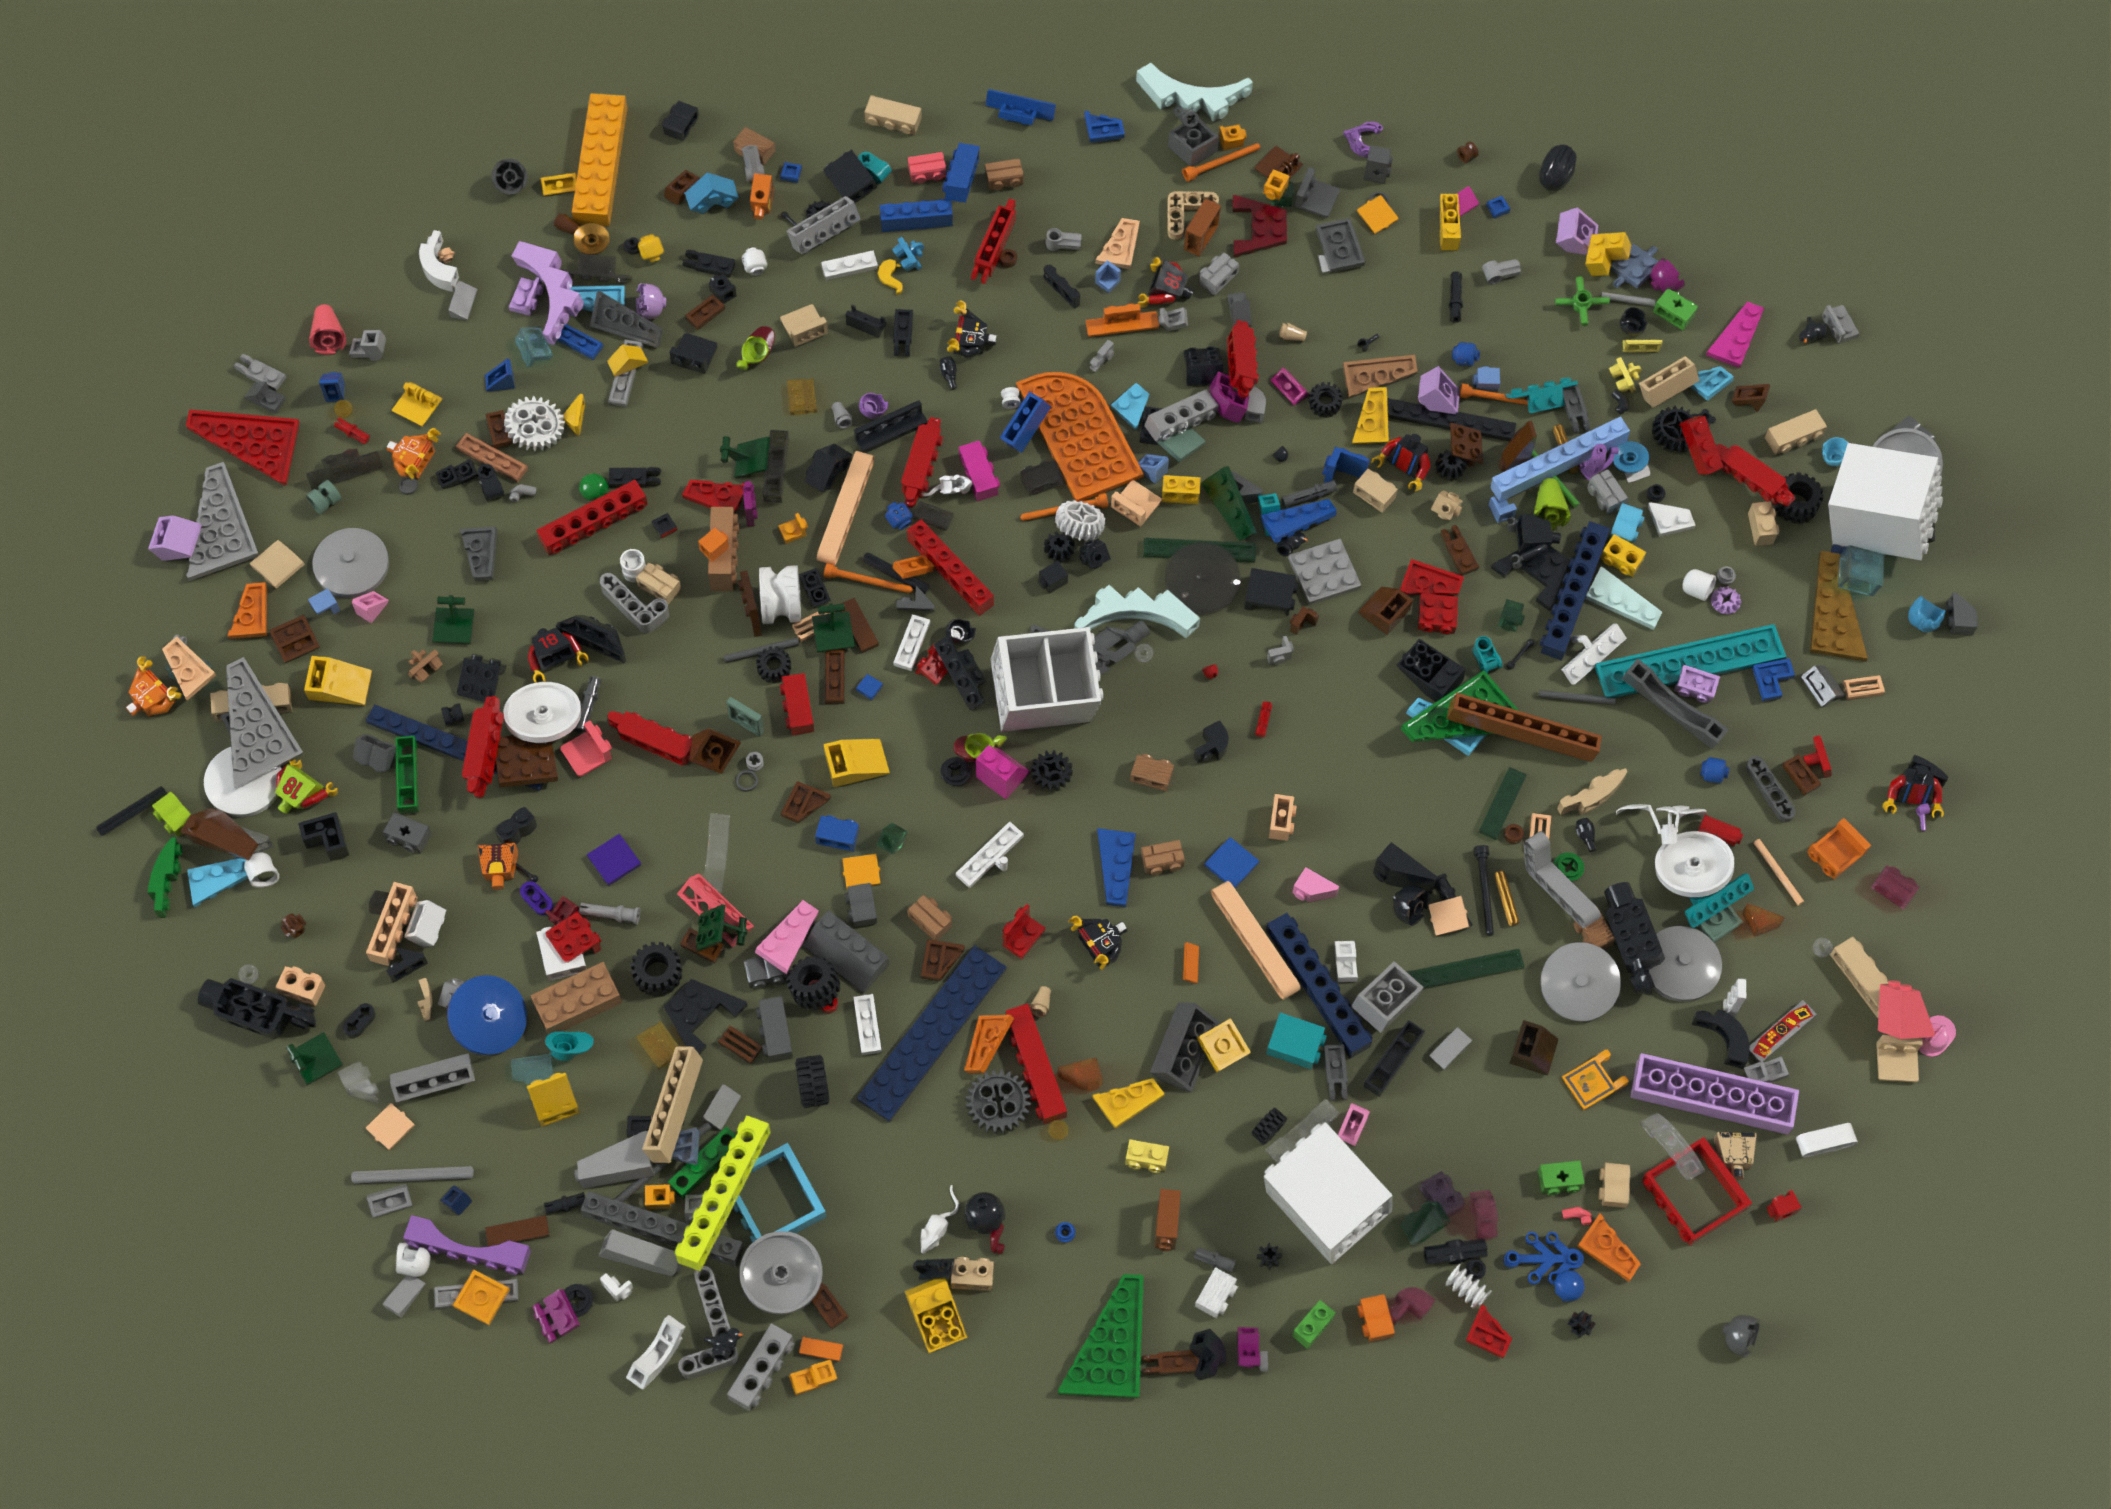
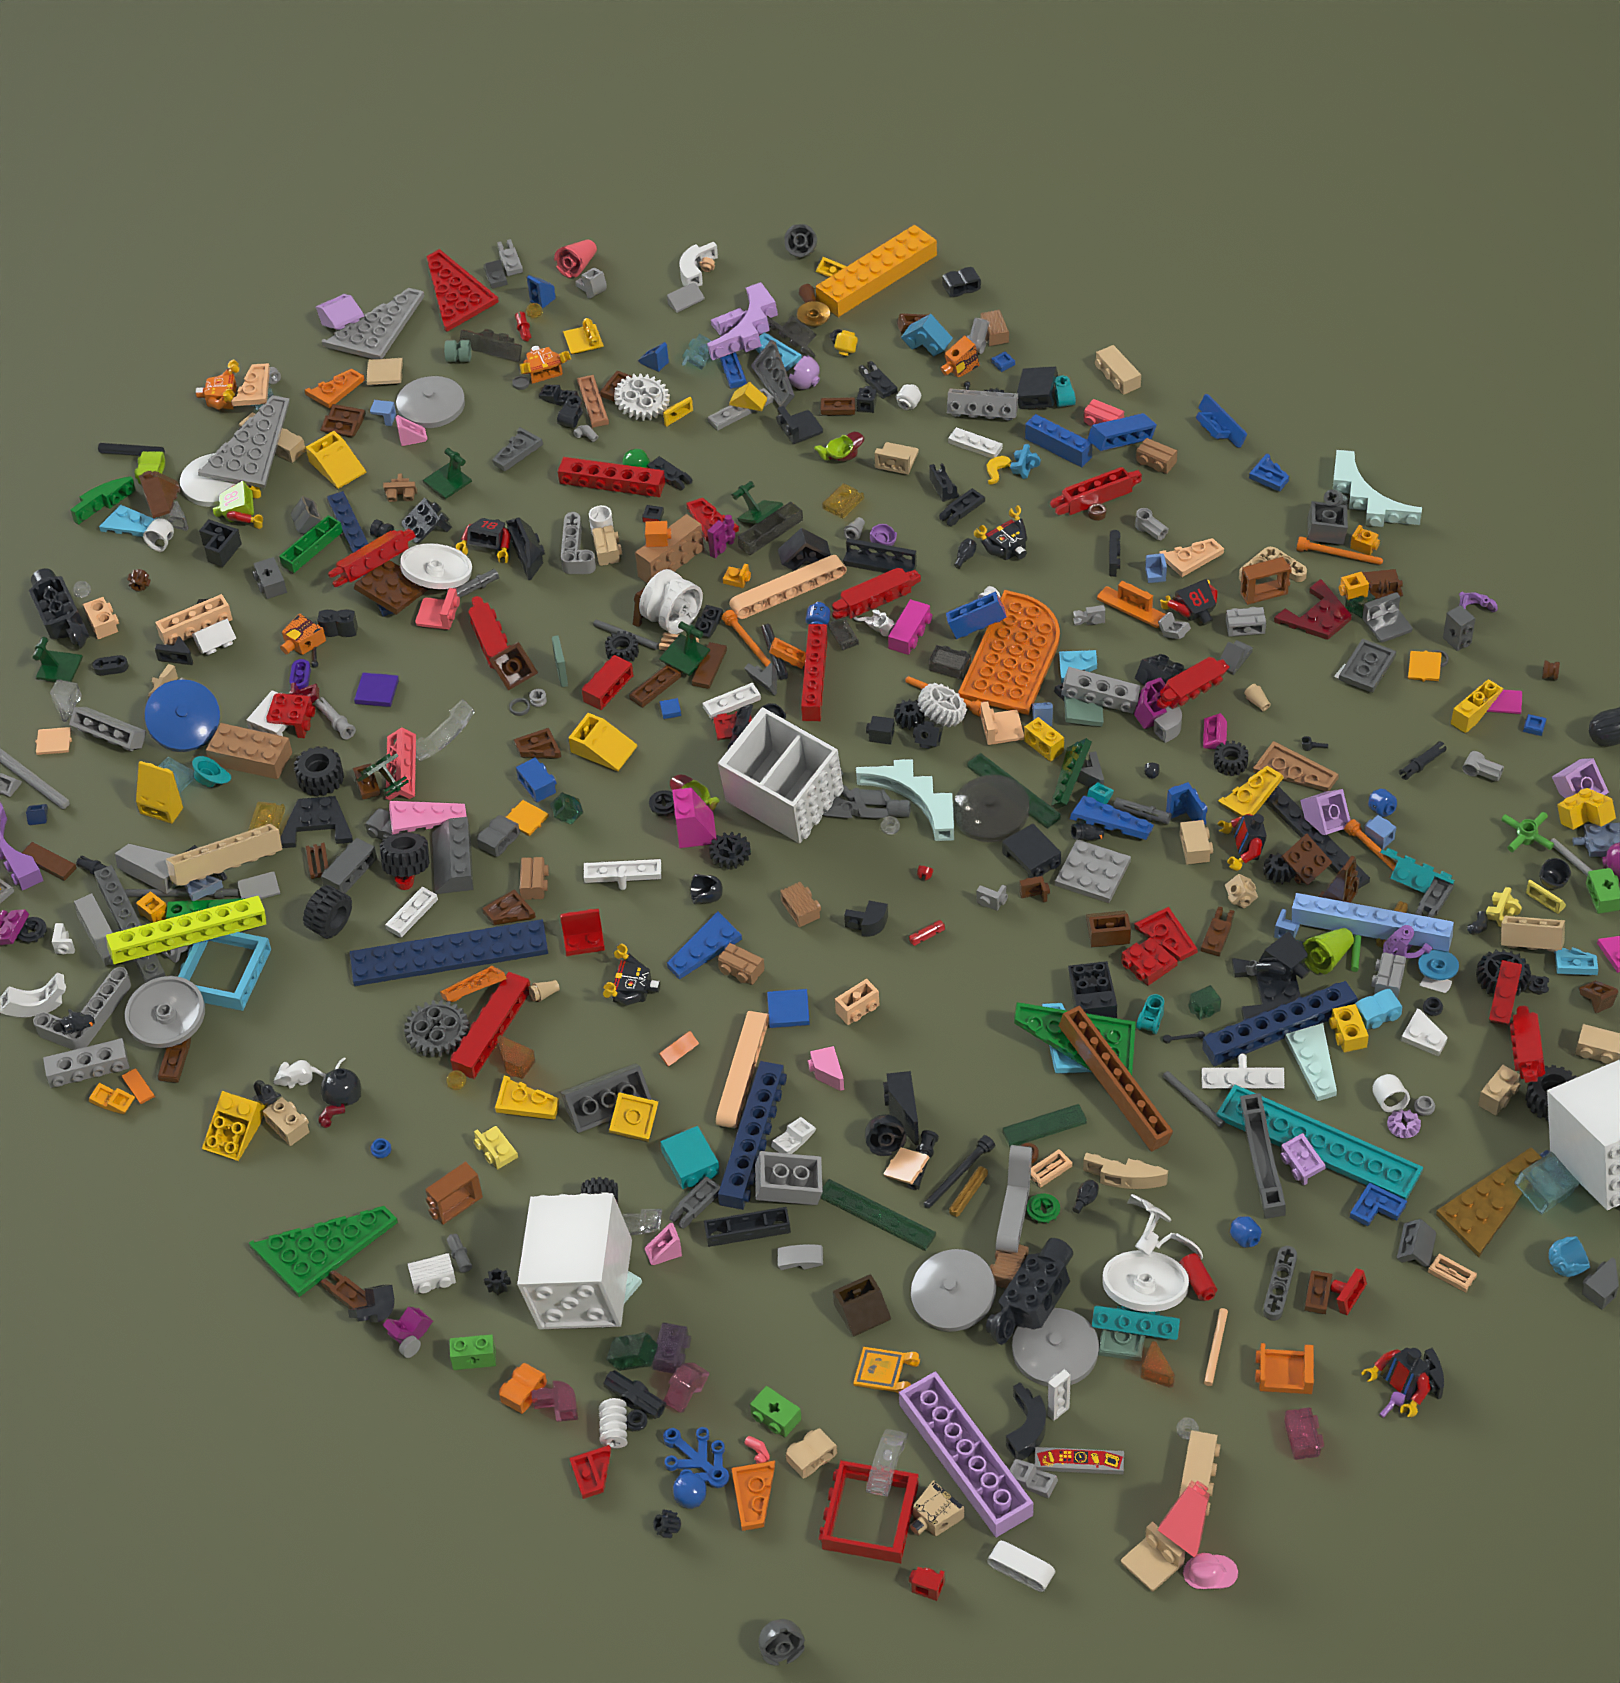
camera: 50 degrees right, 15 degrees down
(1062, 817) = (705, 889): none -> black hair

